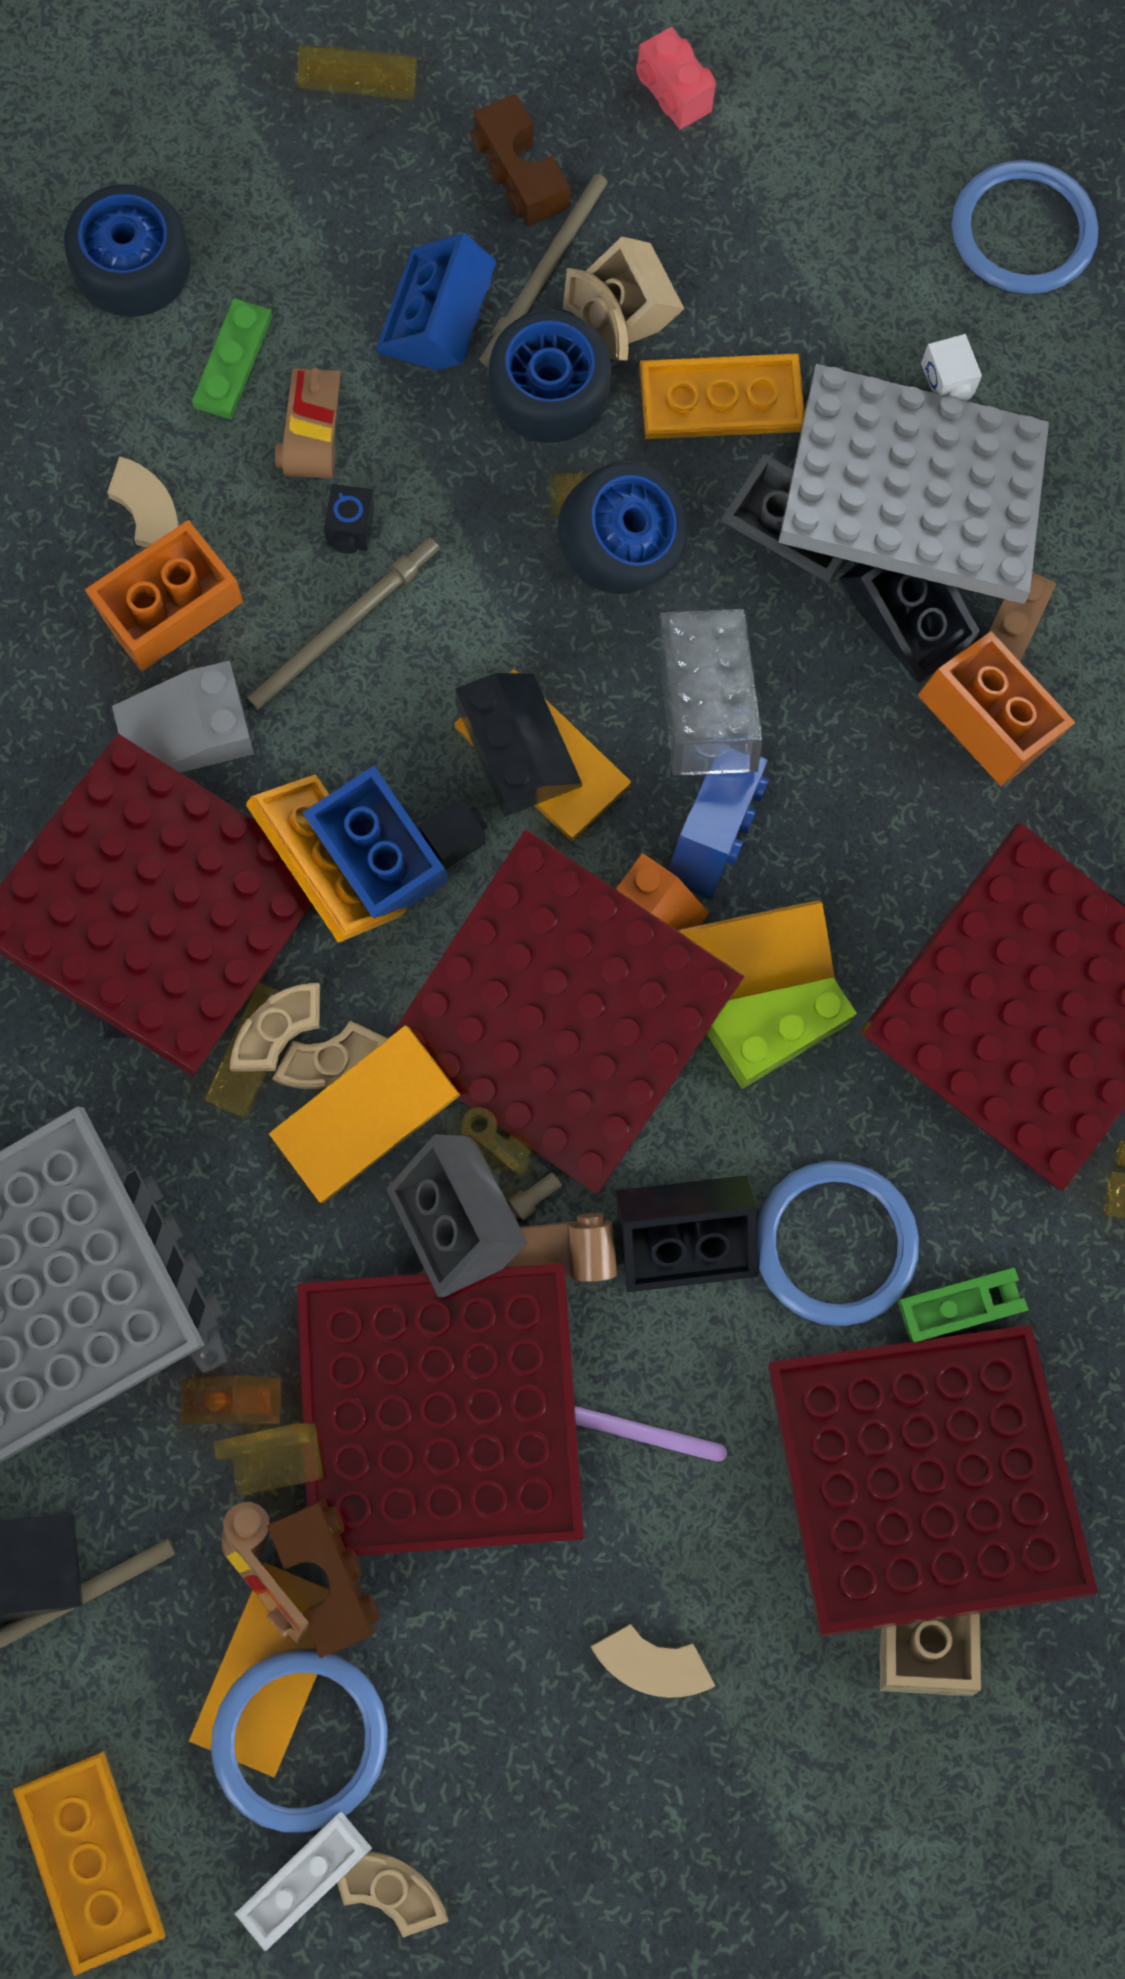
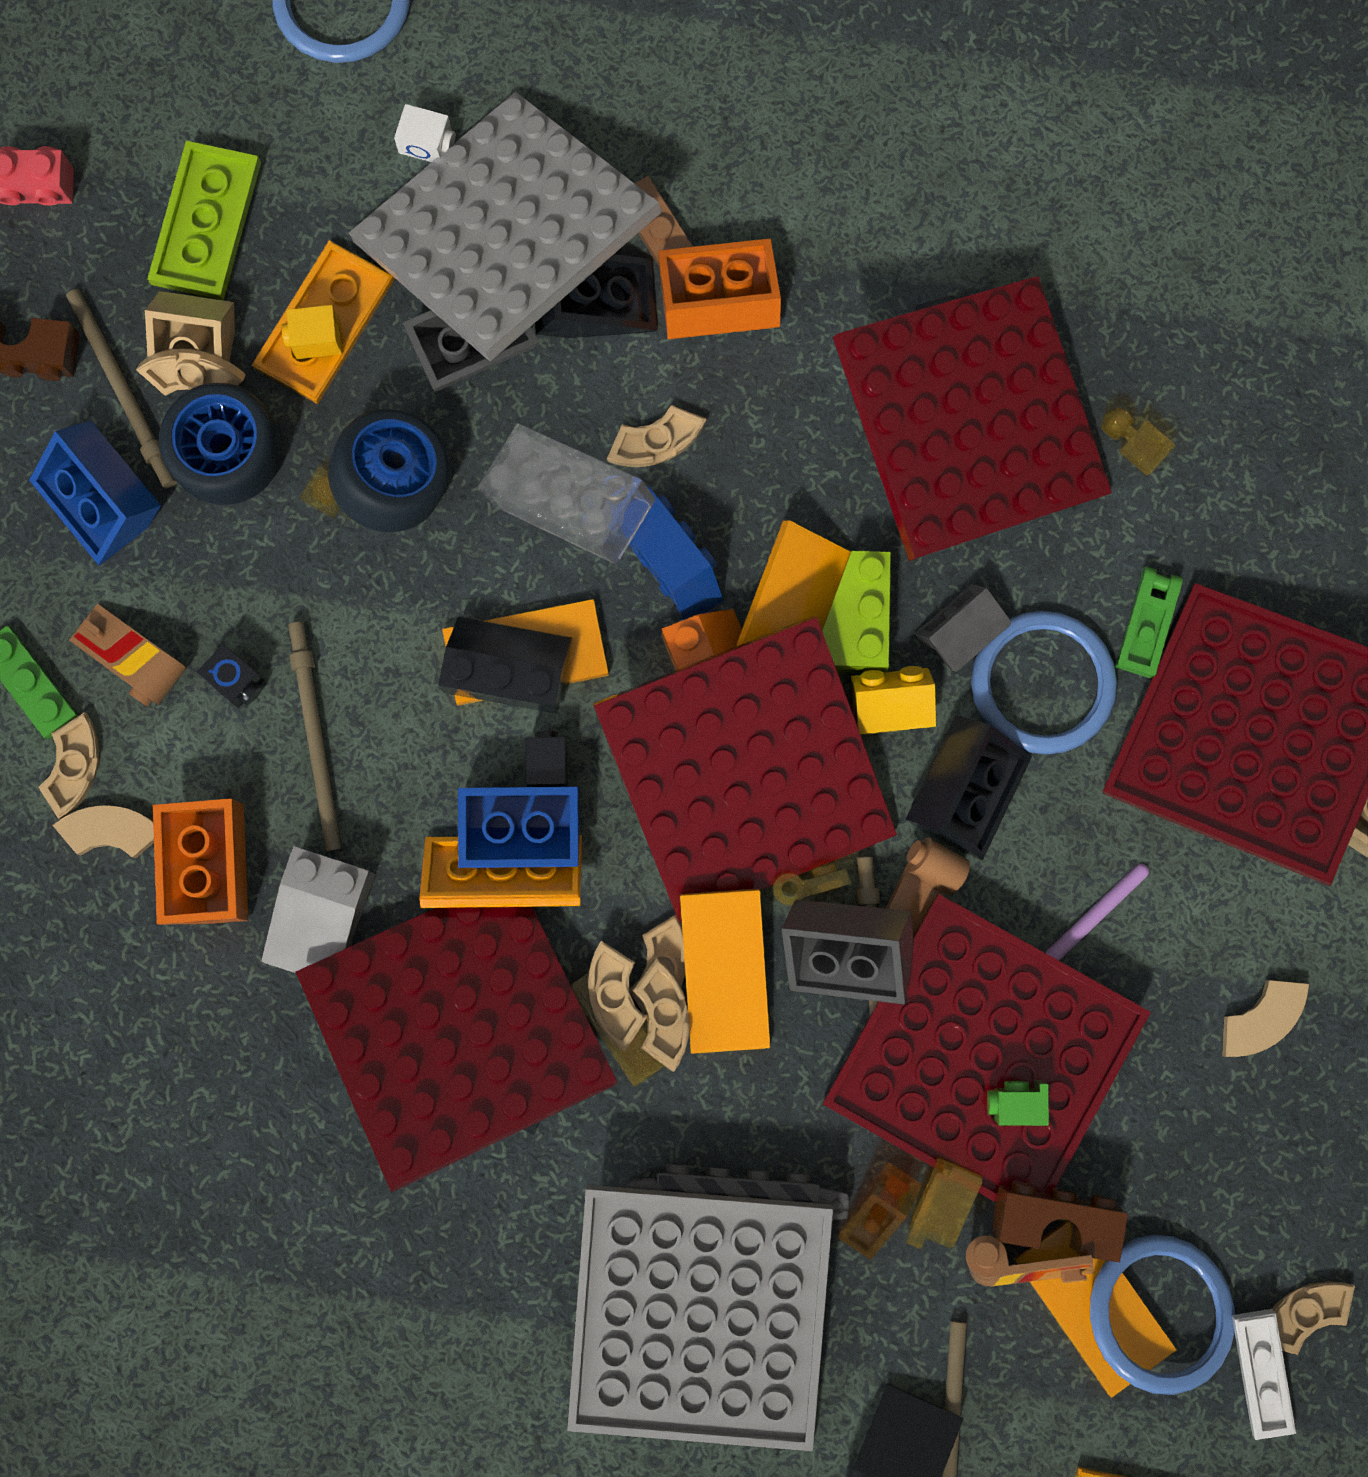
camera: 50 degrees left, 5 degrees up
(183, 443) = (74, 767): none -> tan tile
(289, 1086) = (666, 1015): none -> tan tile
(411, 1464) = (1019, 1104): none -> bright green brick
(703, 388) = (312, 332): none -> yellow brick
(720, 1107) = (893, 700): none -> yellow brick
(741, 241) = (204, 220): none -> lime plate
(817, 747) = (658, 441): none -> tan tile
(836, 1133) = (964, 626): none -> flat silver panel

